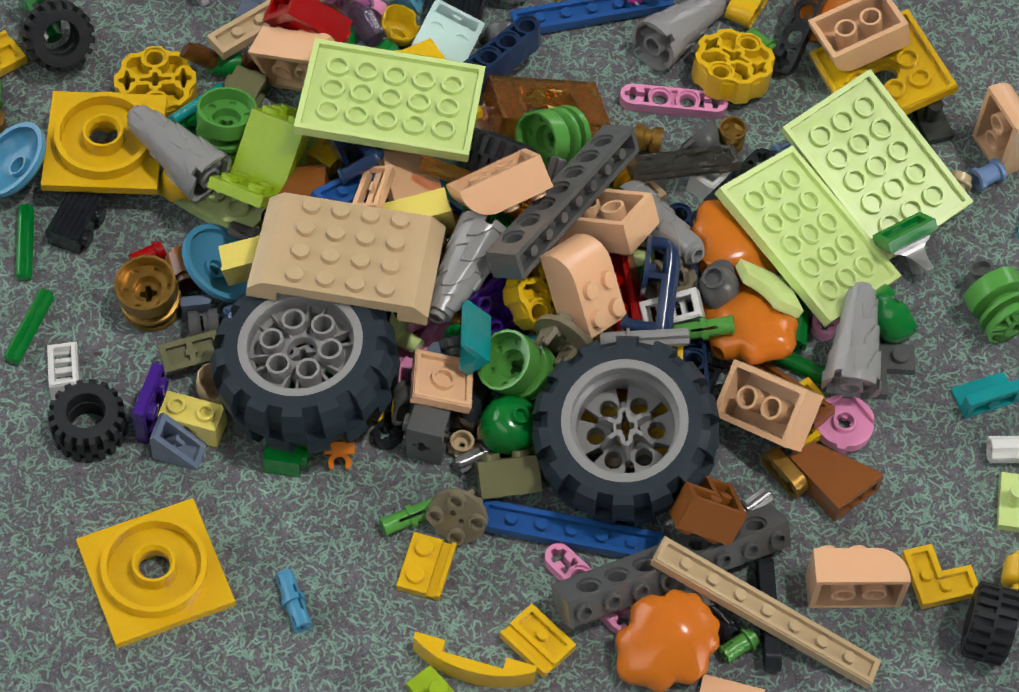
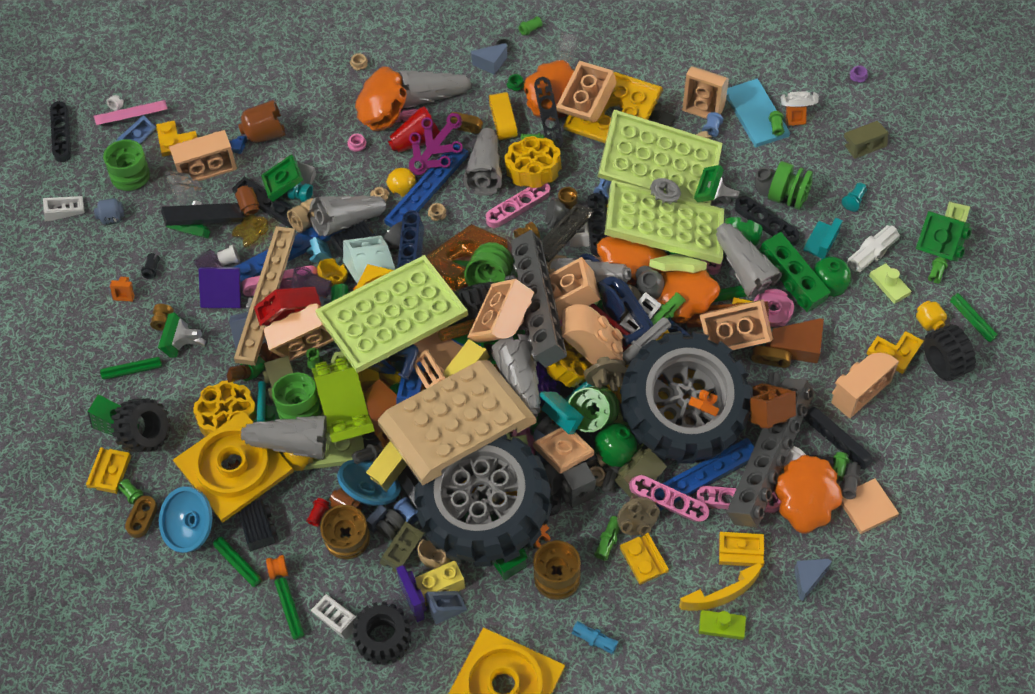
camera: 35 degrees left, 0 degrees up
(54, 276) = (277, 567): none -> orange wheel
(292, 95) = (313, 357): none -> bright green pin
(313, 486) = (557, 558): none -> pearl gold wheel
(505, 527) = (668, 501): none -> bright pink beam
(576, 39) = (437, 207): none -> tan plate
(628, 450) = (705, 404): none -> orange tile
(733, 669) = (851, 481): none -> dark grey axle
(765, 612) = (840, 437): tan tile -> none
(840, 191) = (672, 190): none -> light grey gear
(914, 359) = (815, 292): none -> green brick
(939, 326) = (769, 218): none -> black beam
(949, 441) = (834, 274): none -> green cylinder

